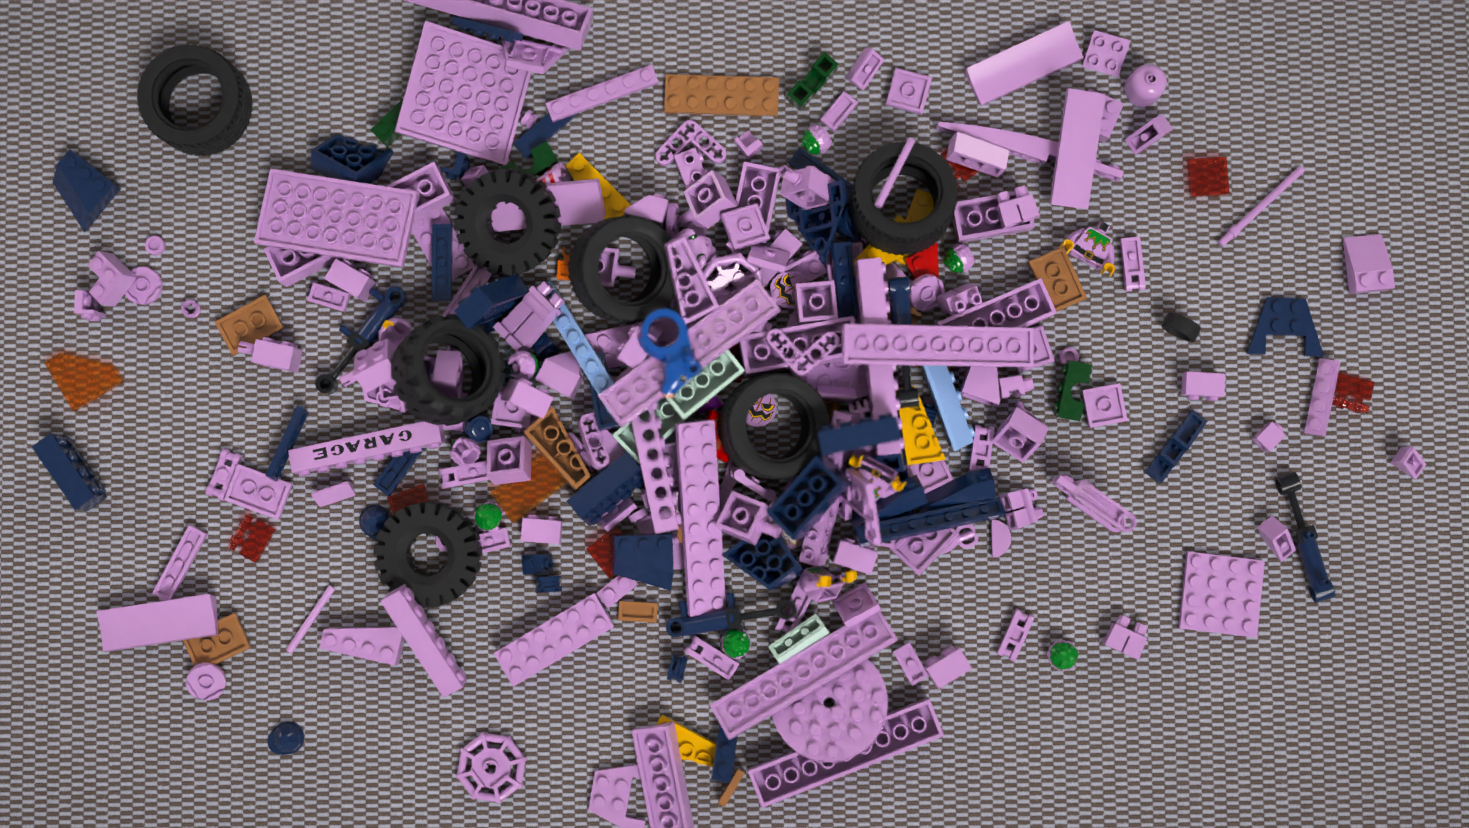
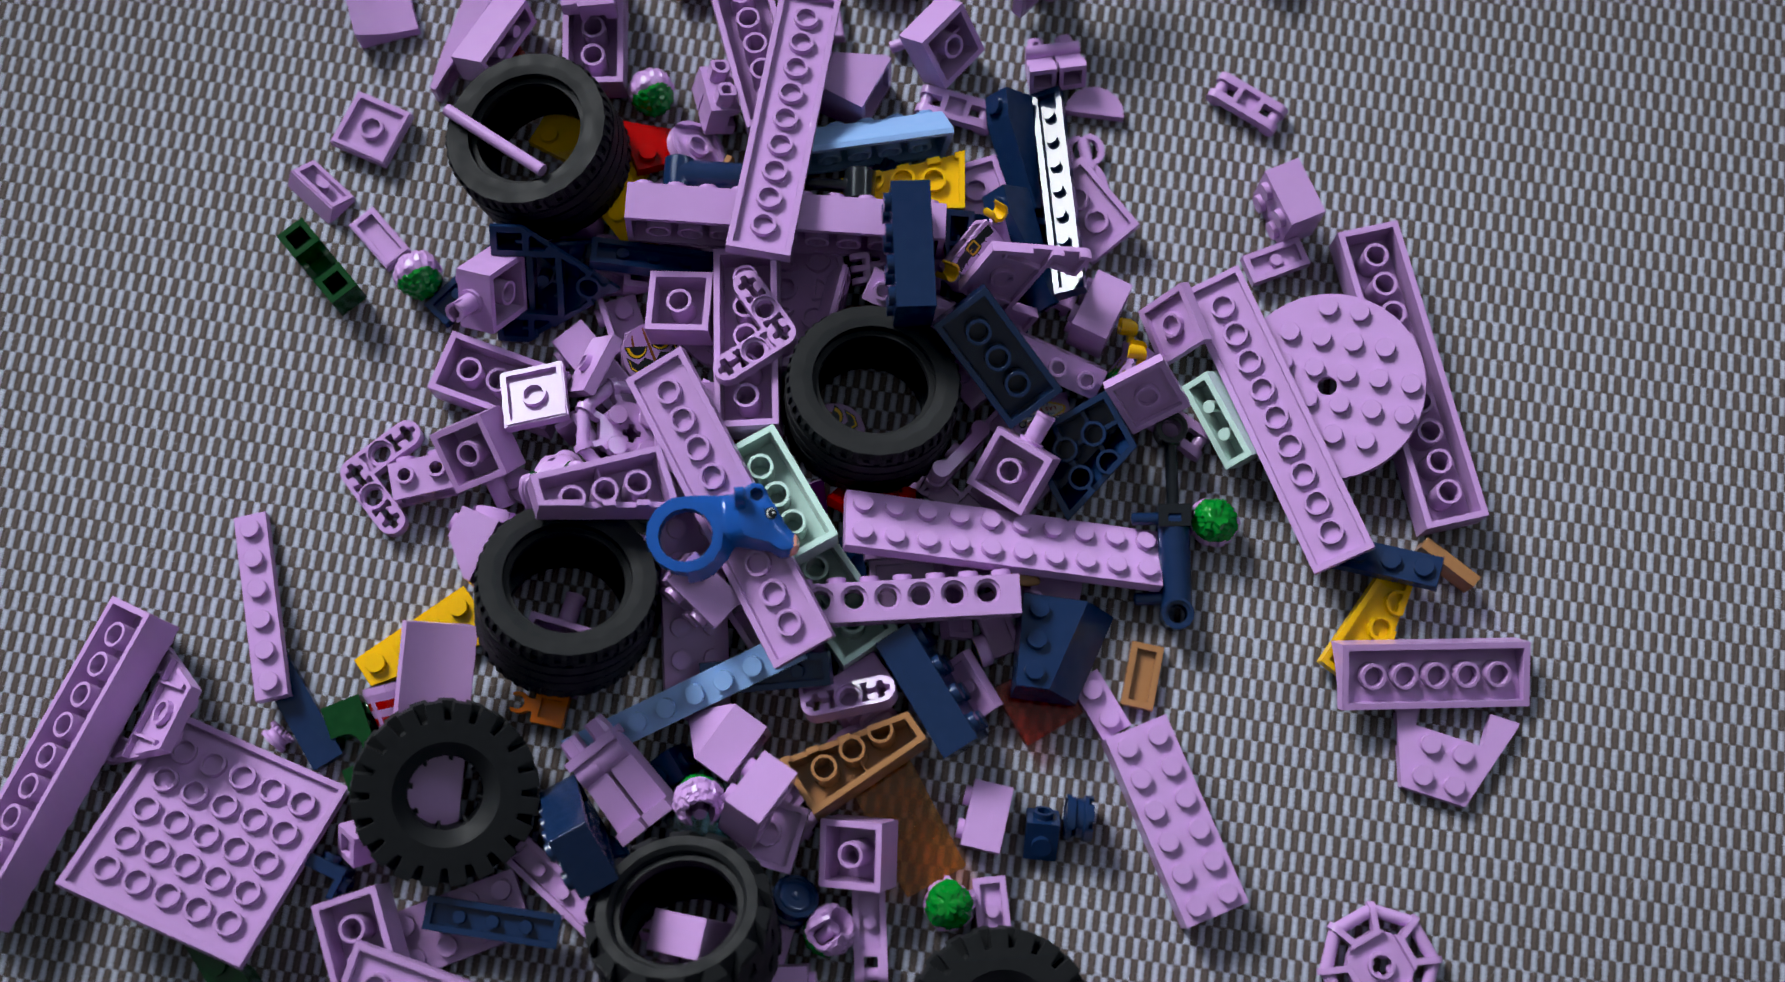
camera: 85 degrees left, 10 degrees down
(493, 32) = (106, 769): dark blue plate -> none
(679, 669) = (1244, 622): dark blue wheel -> none
(712, 658) = (1232, 565): lavender plate -> none
(721, 95) = (311, 416): medium nougat plate -> none
(748, 144) = (402, 385): lavender panel -> none
(800, 591) = (1146, 393): none -> lavender plate
(1015, 385) = (866, 32): lavender hips -> none
(1063, 655) = (1286, 38): green piece -> none

